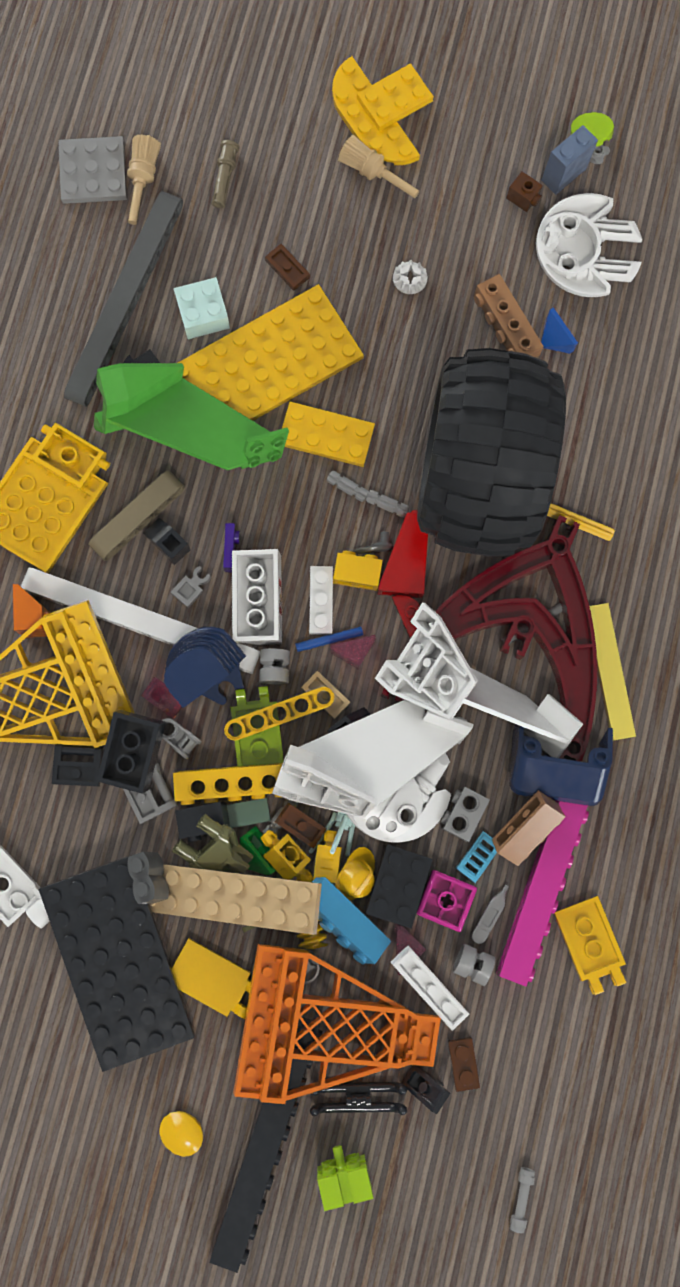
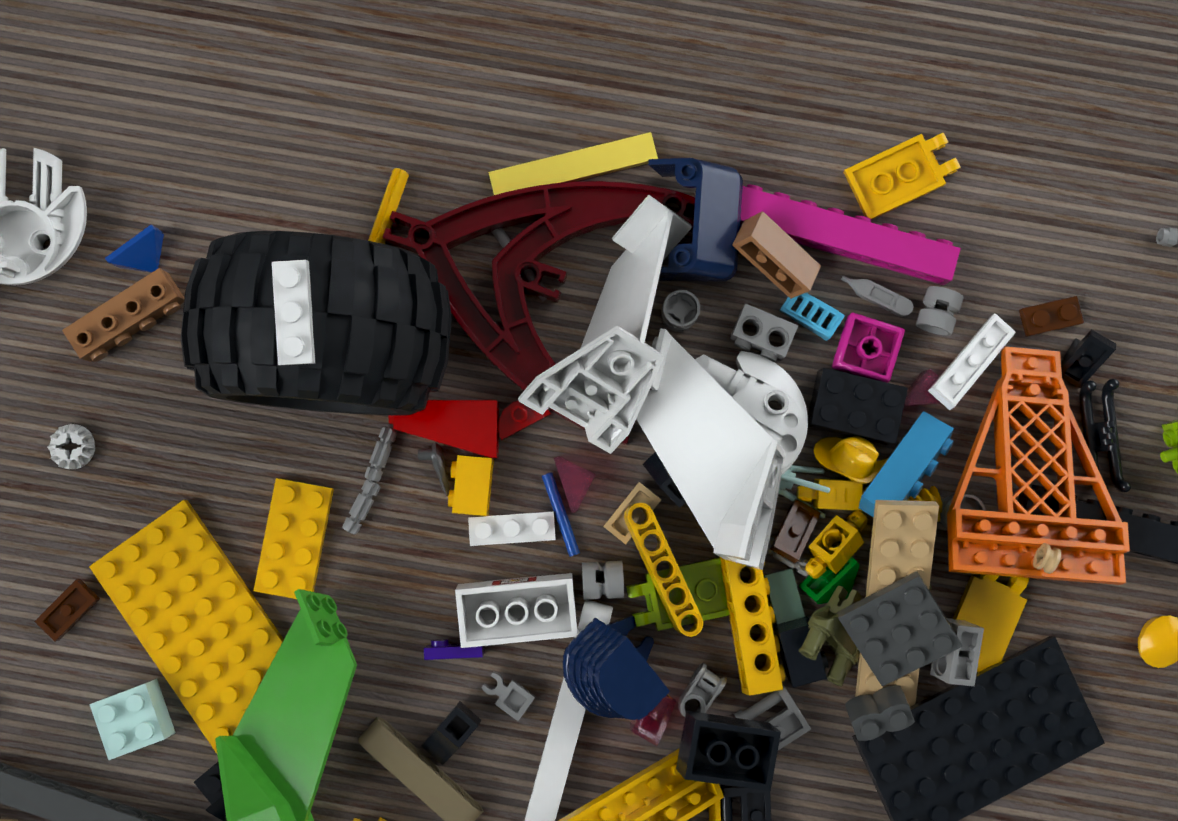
camera: 90 degrees left, 5 degrees up
(190, 948) = (962, 664): none -> light grey brick
(214, 897) = (899, 629): none -> dark grey plate
(261, 1026) = (1047, 558): none -> tan bush
(486, 746) = (680, 310): none -> light grey wheel
(502, 421) = (293, 312): none -> white plate

